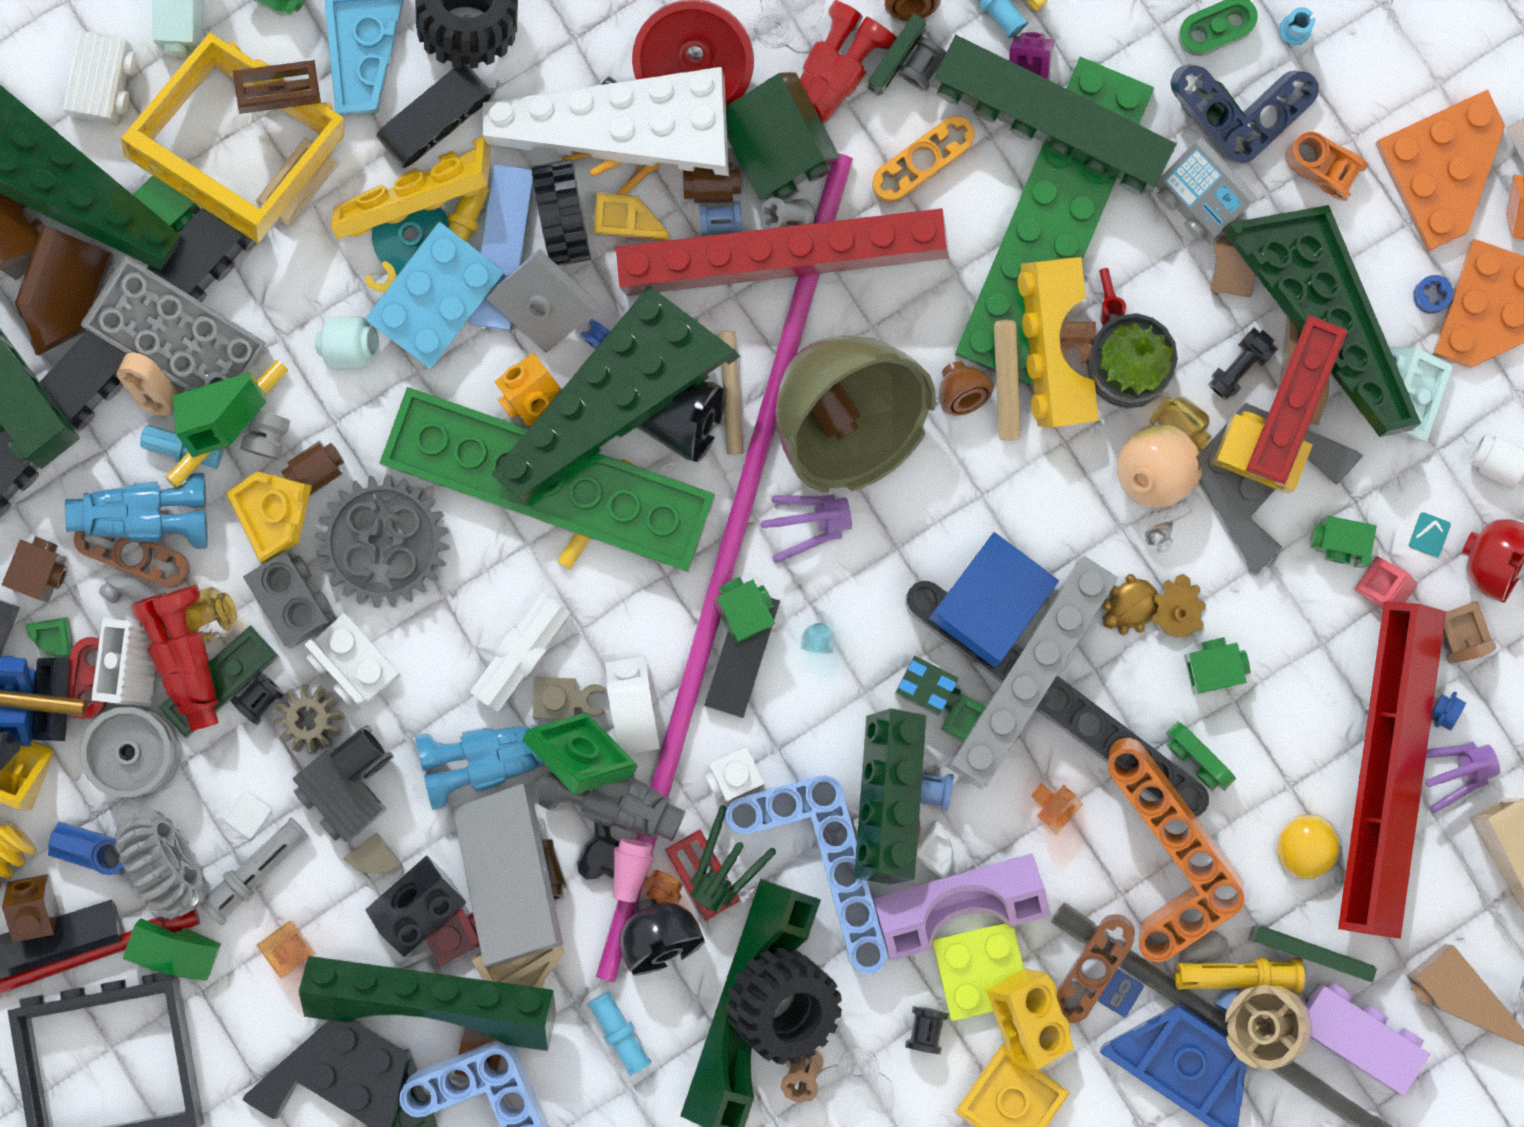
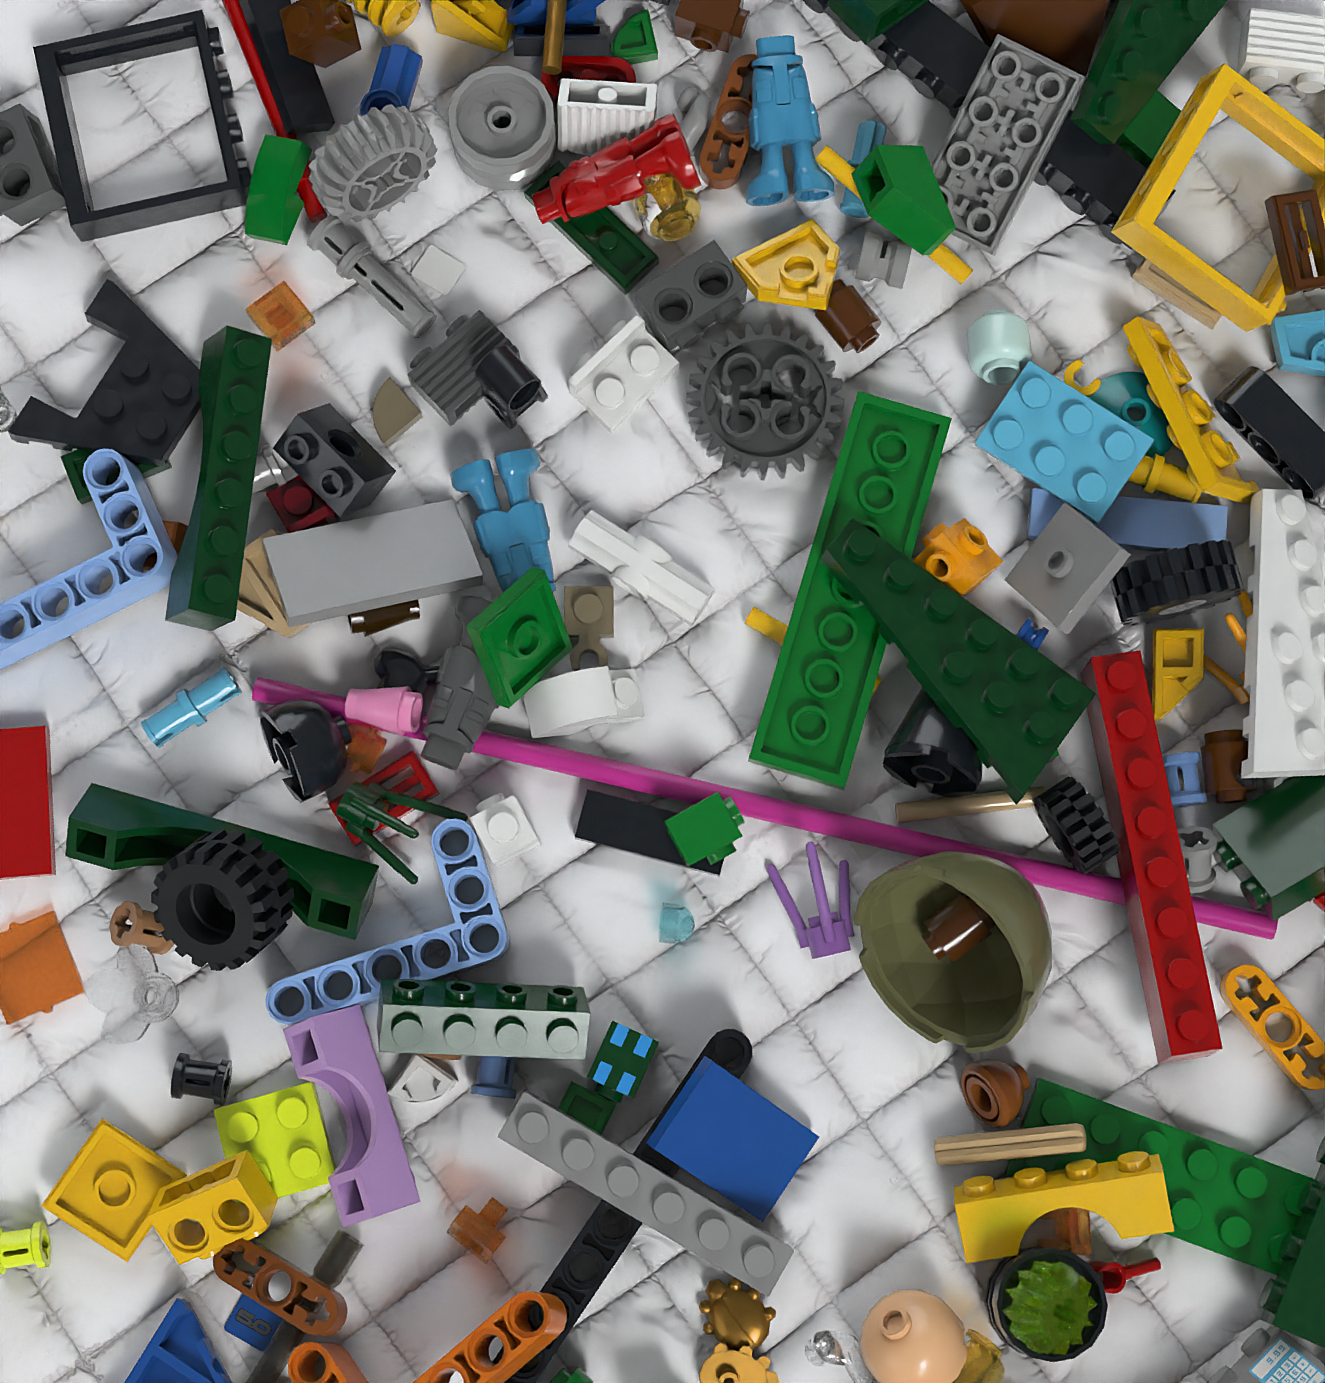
camera: 85 degrees right, 5 degrees down
(147, 384) = (936, 117): light nougat beam -> none
(257, 698) = (558, 265): black bush -> none
(322, 720) = (554, 312): dark tan gear -> none
(755, 308) = (1076, 825): none -> black tyre

